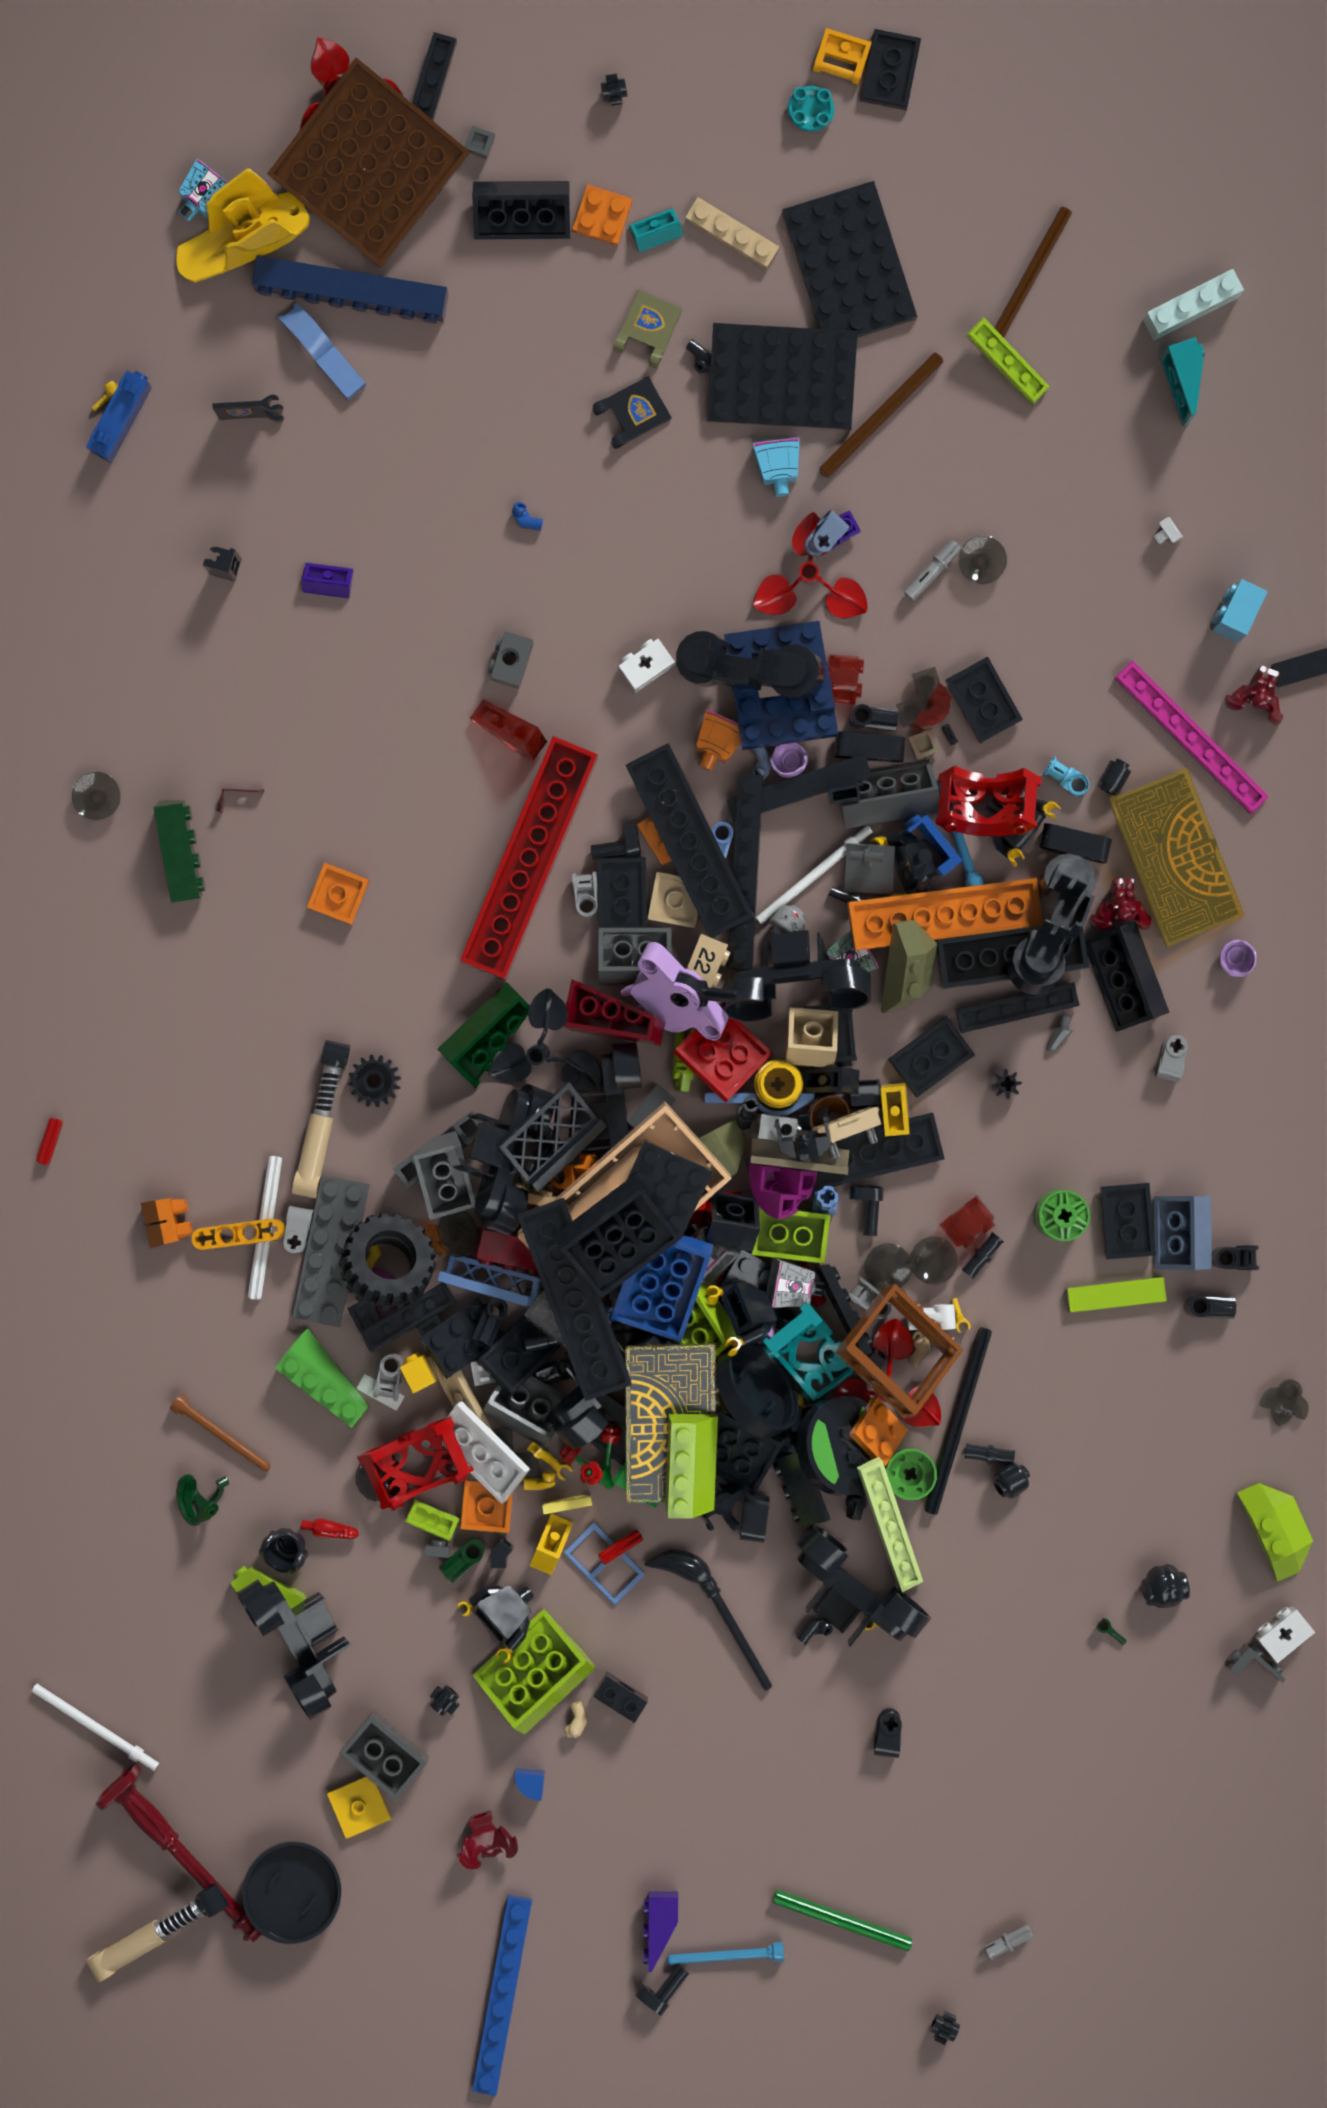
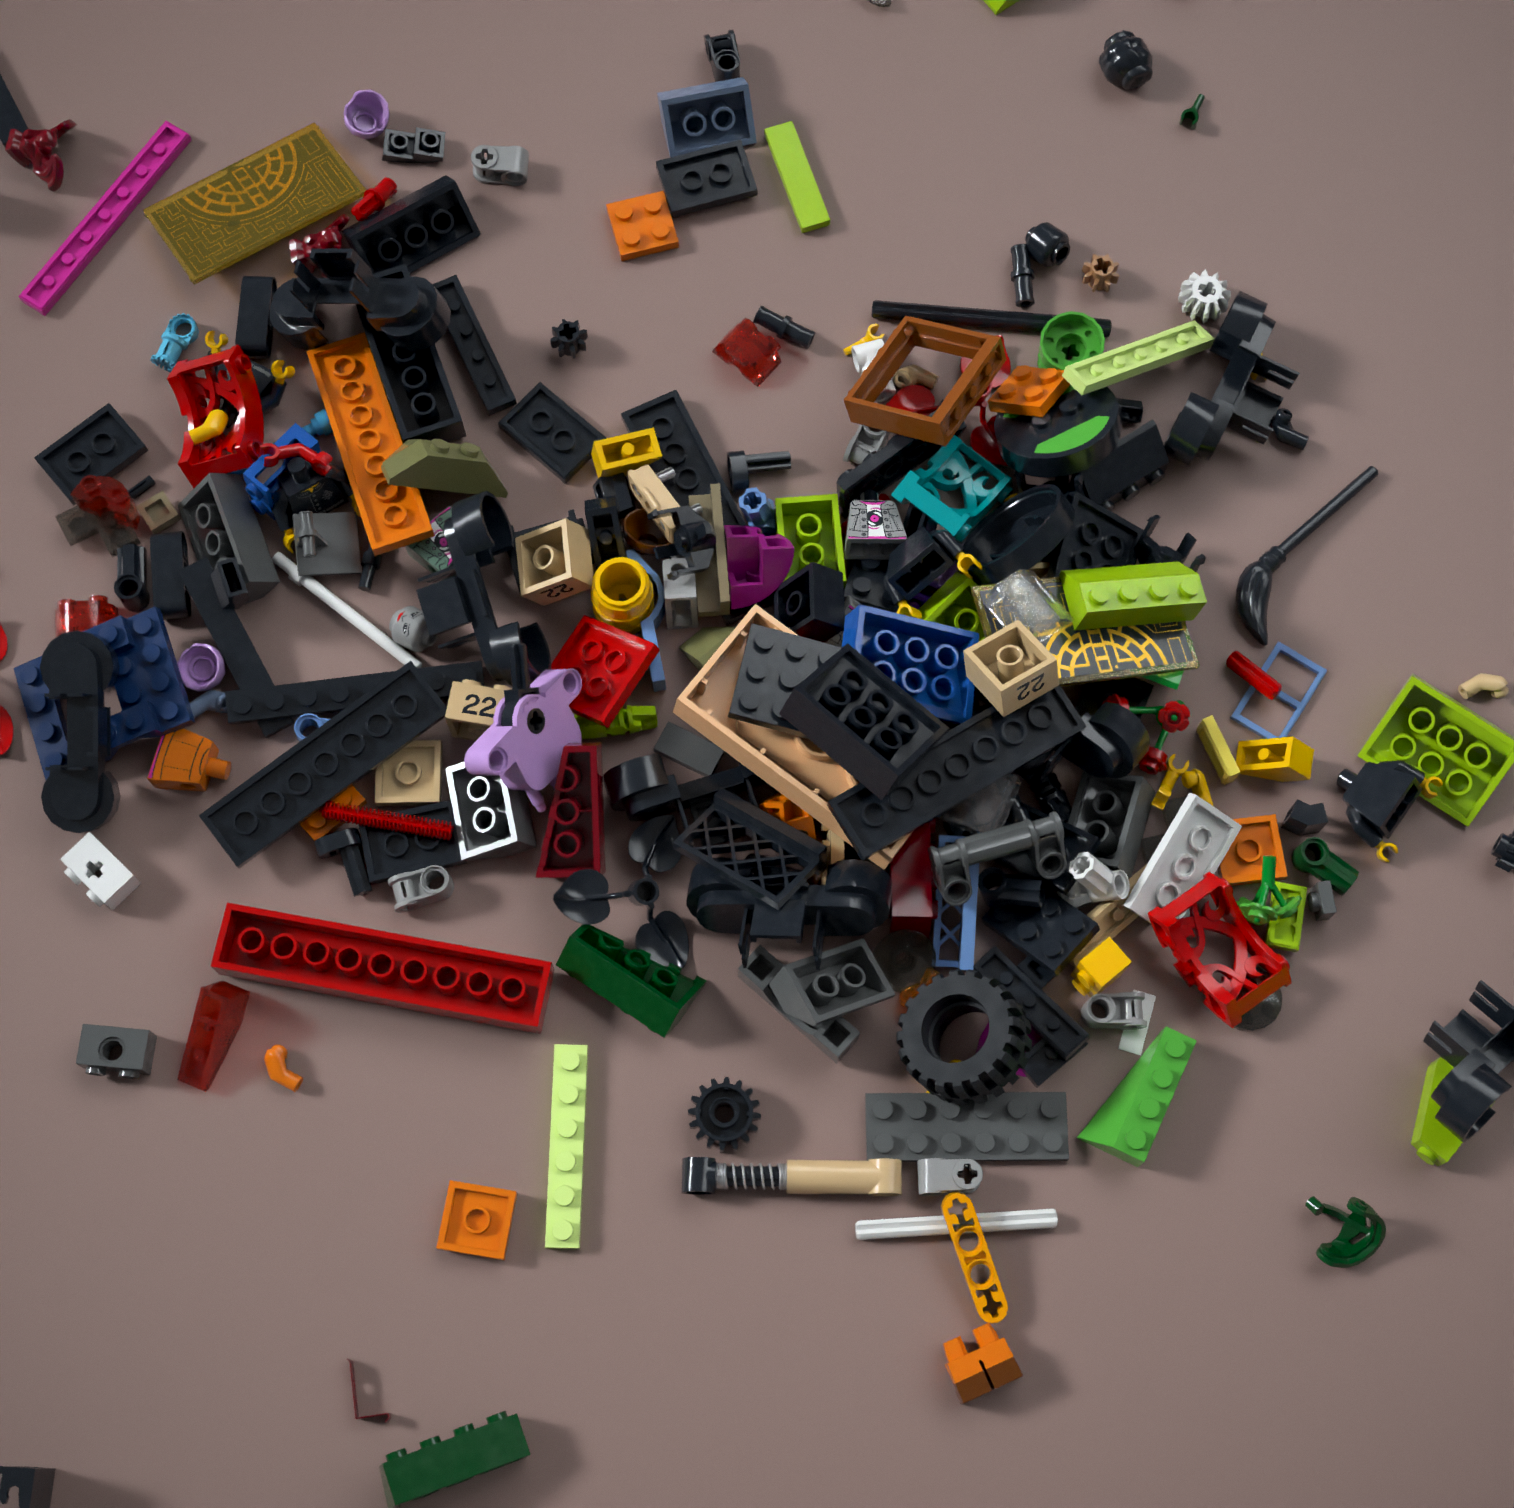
camera: 100 degrees left, 15 degrees down
(182, 1407) = (1227, 1285): dark orange piece -> none
(284, 1550) = (1382, 1099): black hair -> none
(327, 580) = (37, 1332): dark purple slope -> none
(329, 1529) = (1336, 1050): red piece -> none
(378, 966) = (566, 1147): none -> yellowish green plate
(442, 1496) = (1255, 909): none -> plant
(475, 771) = (277, 1068): none -> orange arm
(481, 1387) = (1098, 879): none -> white piece
(515, 1349) = (1039, 837): none -> dark grey piece
(620, 1697) = (1440, 636): black brick -> none
(635, 1354) = (1011, 668): none -> tan brick
(637, 880) = (388, 821): none -> red axle
(687, 1382) = (1029, 600): none -> clear slope
(747, 1113) = (667, 624): black pin -> none
(754, 1519) = (1174, 522): black beam -> none
(887, 1266) = (823, 432): clear smoke dish -> none
(888, 1737) = (1387, 323): black piece -> none
(925, 874) = (318, 461): none -> red arm
(933, 1260) = (803, 381): clear smoke dish -> none
(950, 1593) = (1215, 297): none -> white gear
(972, 1513) = (1100, 273): none -> medium nougat gear
(979, 796) = (212, 427): none -> yellow arm
(1050, 1207) = (715, 244): bright green wheel -> none
(1060, 1034) = (495, 293): dark grey bar -> none
(1097, 1161) = (642, 225): none -> orange plate
(1114, 776) = (166, 288): black brick -> none
(1159, 952) = (374, 199): none -> red axle
(1206, 991) = (416, 147): none -> black slope
(1212, 1307) = (788, 74): black piece -> none

